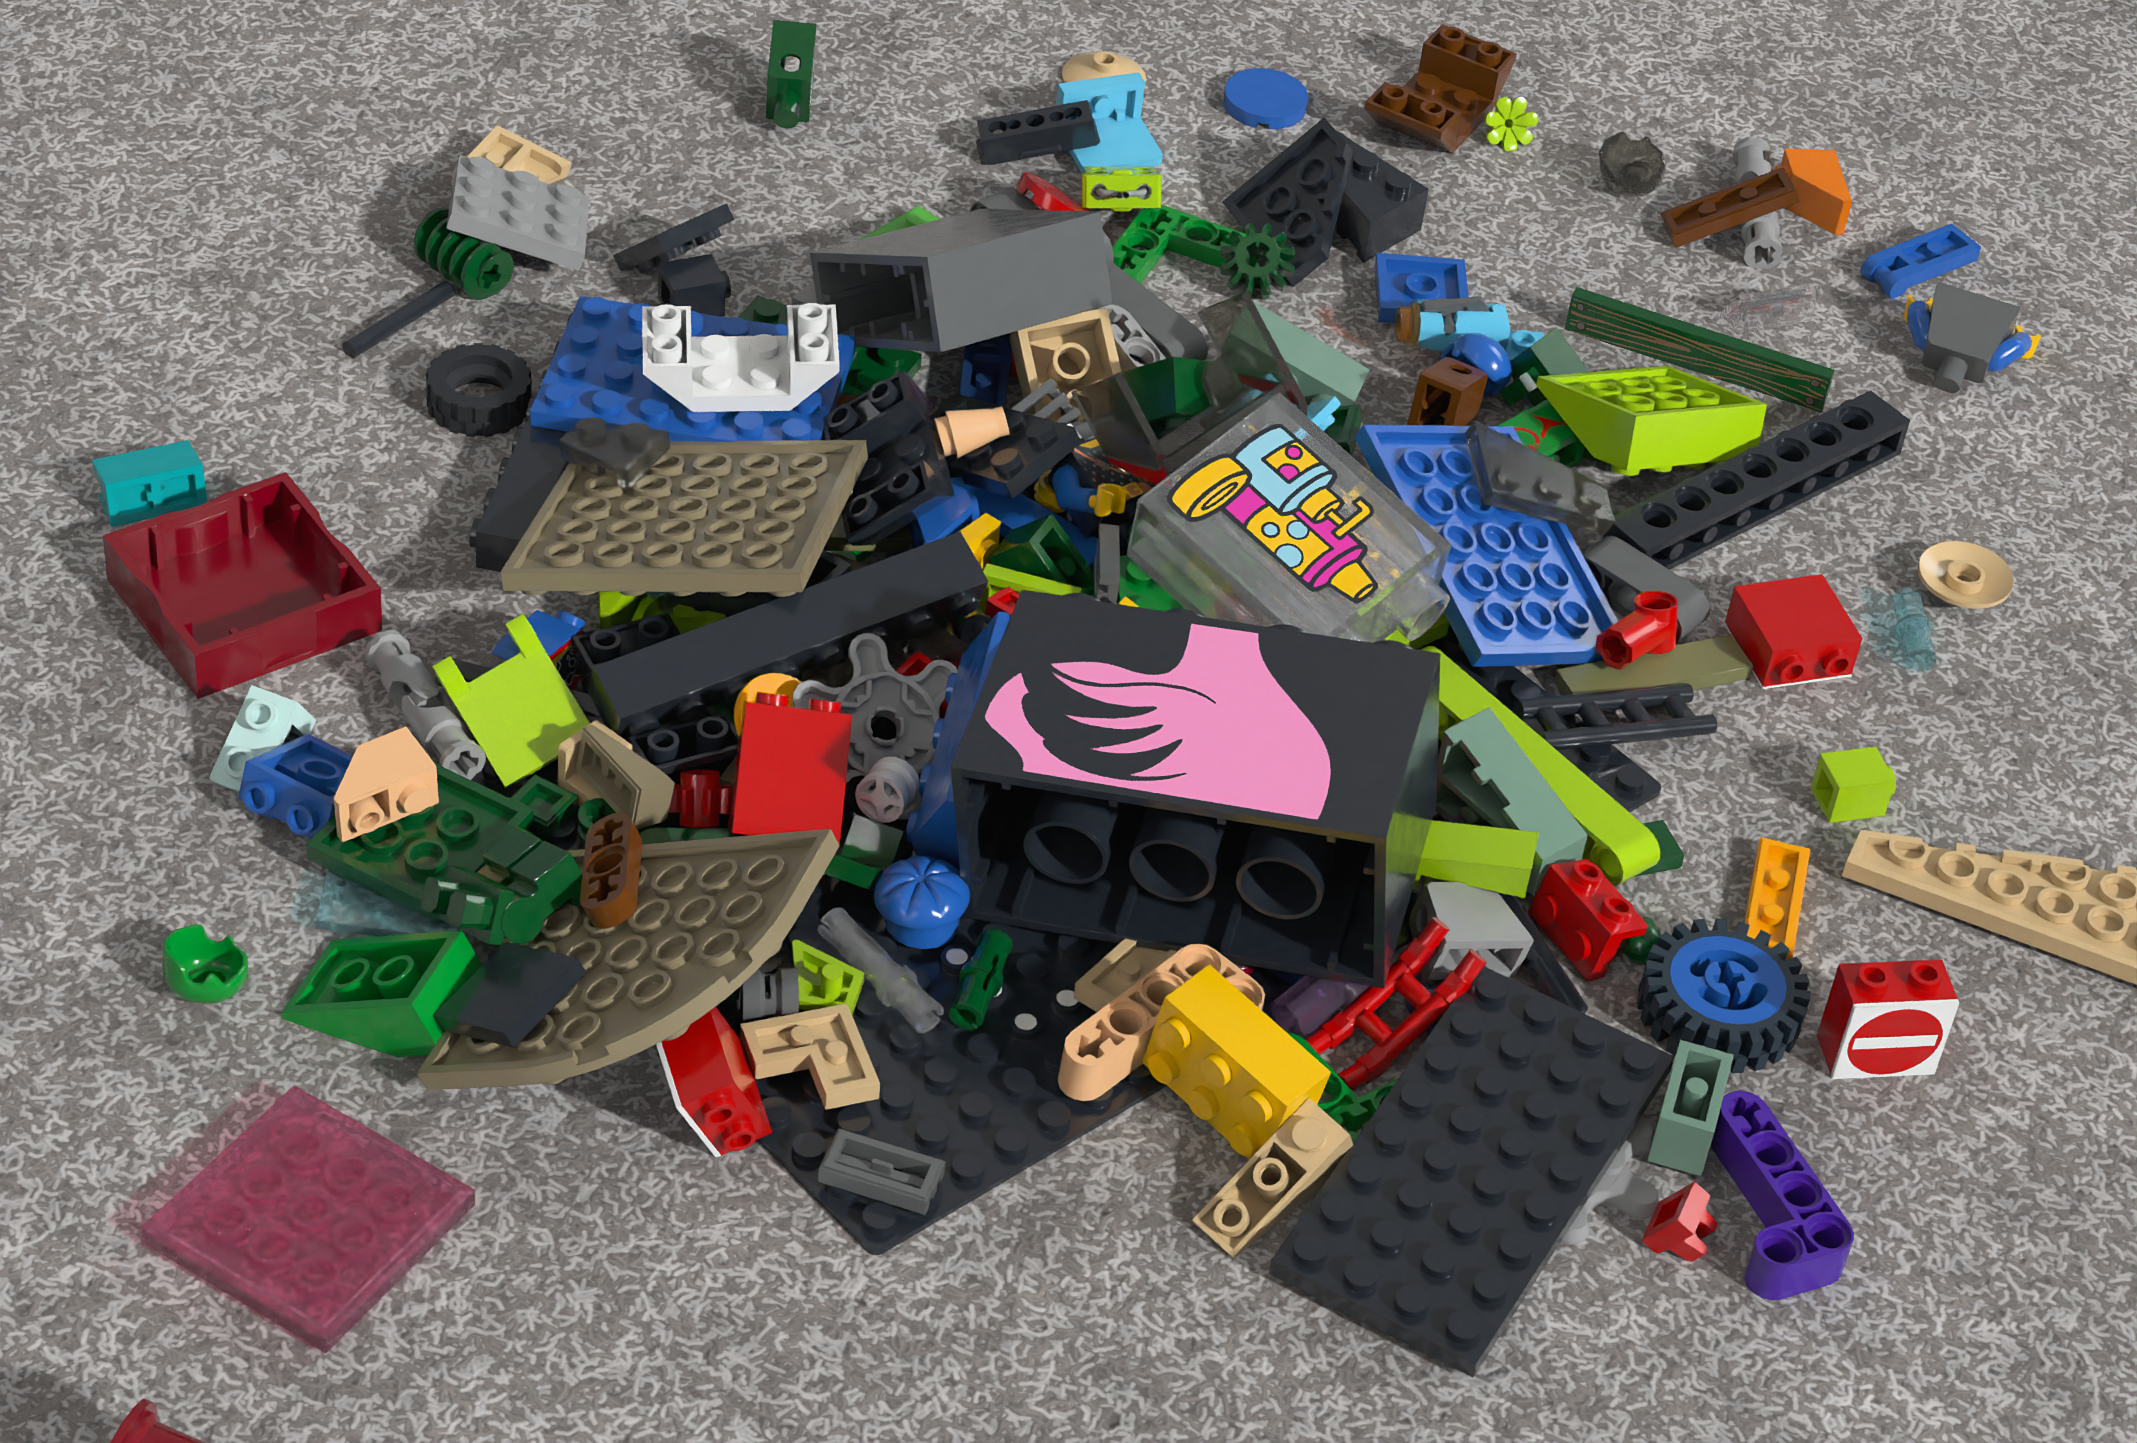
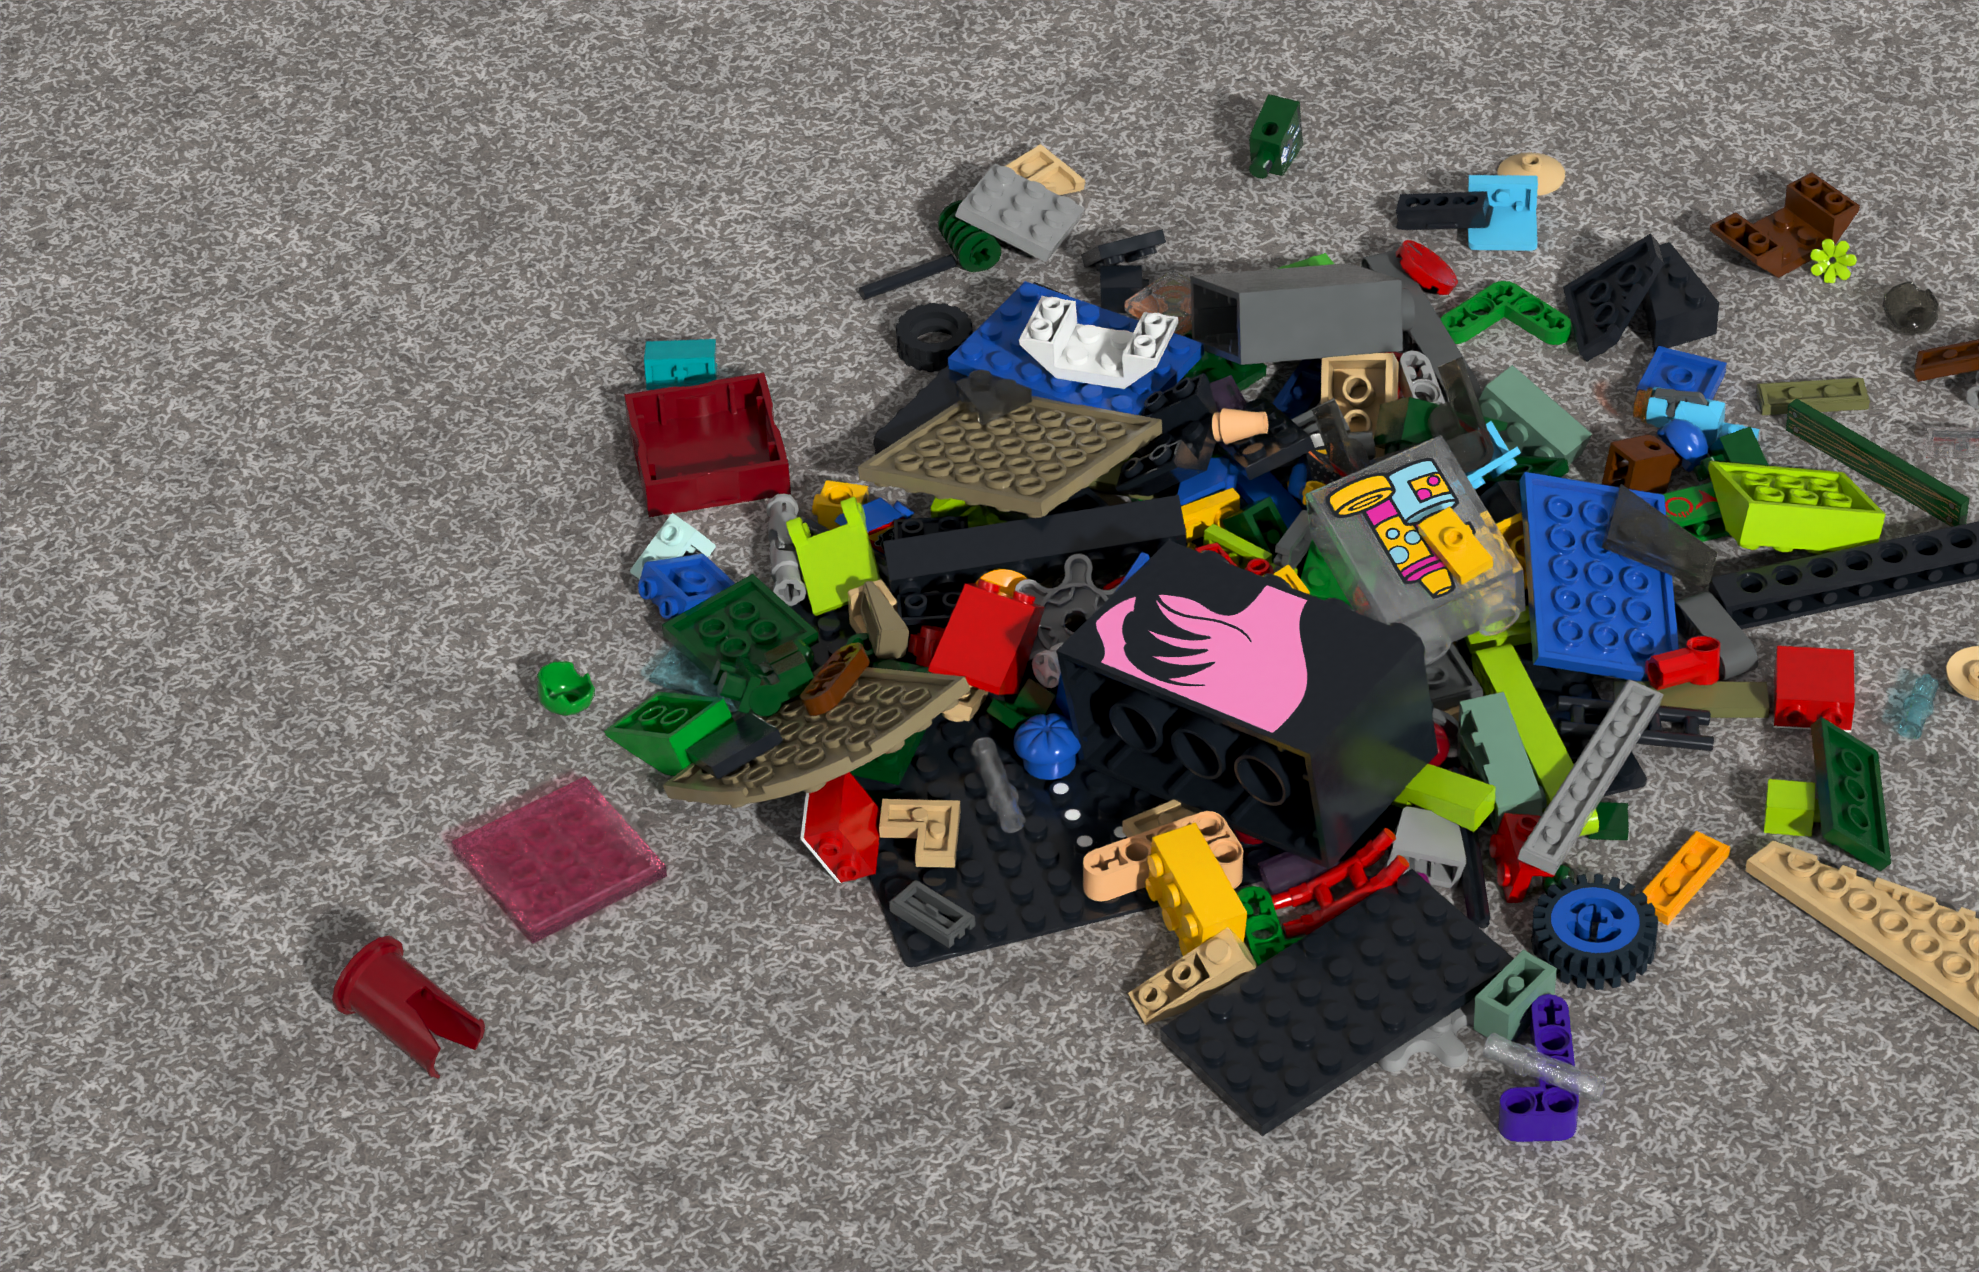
camera: 30 degrees right, 0 degrees up
(384, 783) = (720, 595): light nougat slope -> none
(469, 631) = (828, 505): none -> yellow brick
(549, 802) = (832, 631): dark green tile -> none
(764, 290) = (1167, 296): none -> clear tile
(782, 995) = (911, 783): dark grey wheel -> none
(824, 979) = (958, 784): lime piece -> none
(980, 979) = (1050, 819): dark green pin -> none
(1121, 187) = (1481, 263): lime piece -> none
(1257, 244) = (1569, 336): dark green gear -> none
(1265, 98) = (1648, 210): blue tile -> none
(1360, 530) = (1455, 545): none -> yellow plate
(1554, 287) = (1819, 394): none -> olive tile
(1630, 799) = (1590, 777): none -> light grey tile
(1680, 1223) = (1461, 1075): red tile -> none
(1806, 1194) = (1529, 1061): none -> clear pin
(1887, 1019) = (1696, 971): piece -> none
(1917, 753) = (1850, 794): none -> dark green plate

